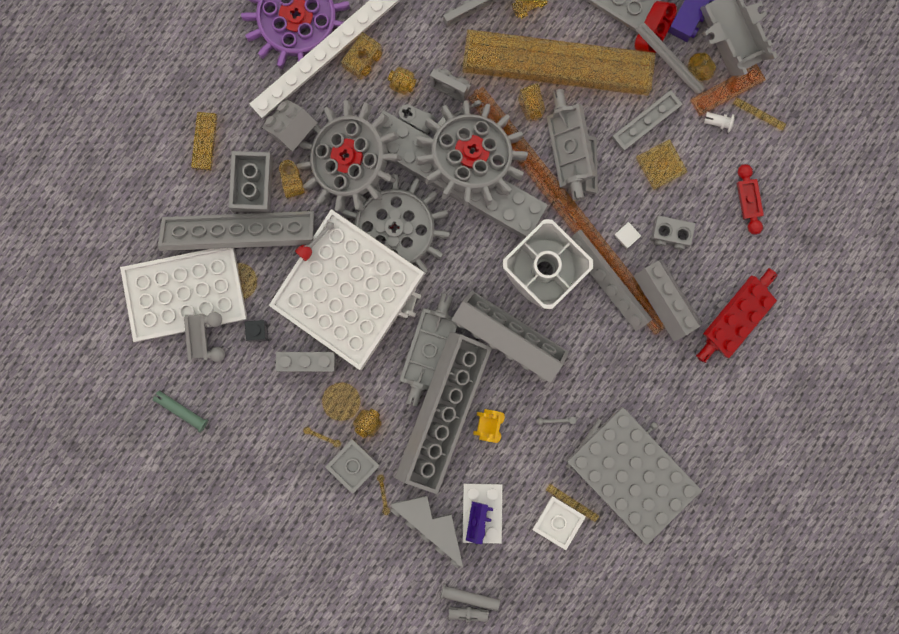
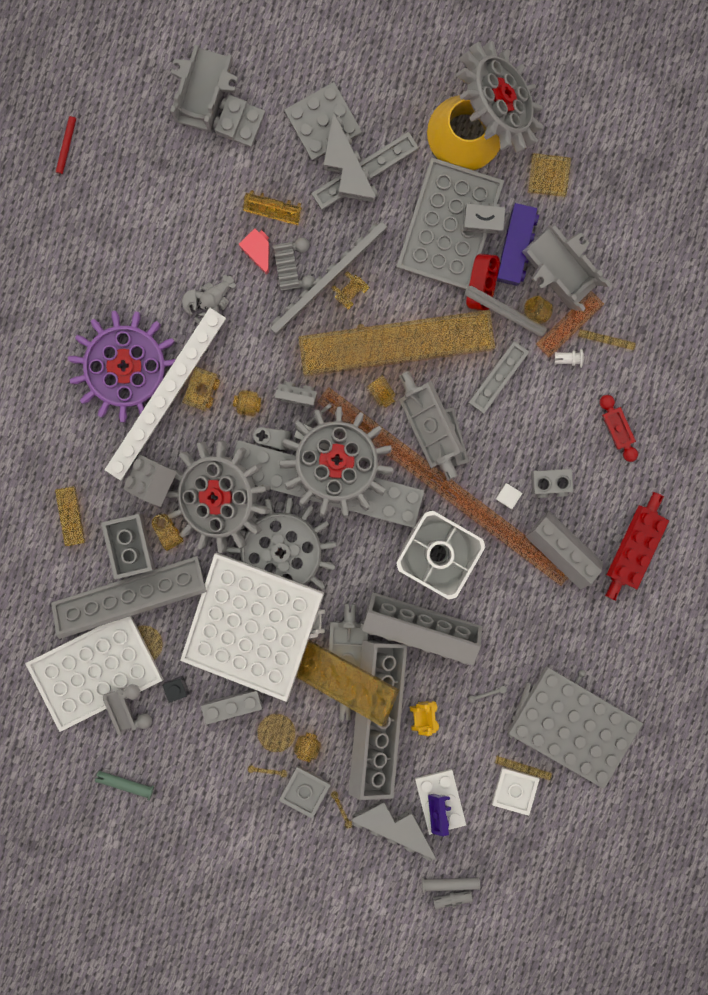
camera: 15 degrees left, 5 degrees up
(305, 251) = (201, 602): hinge -> none
(423, 366) = (347, 683): none -> clear yellow plate
(613, 285) = (503, 546): light grey plate -> none
(661, 164) = (524, 416): clear yellow plate -> none

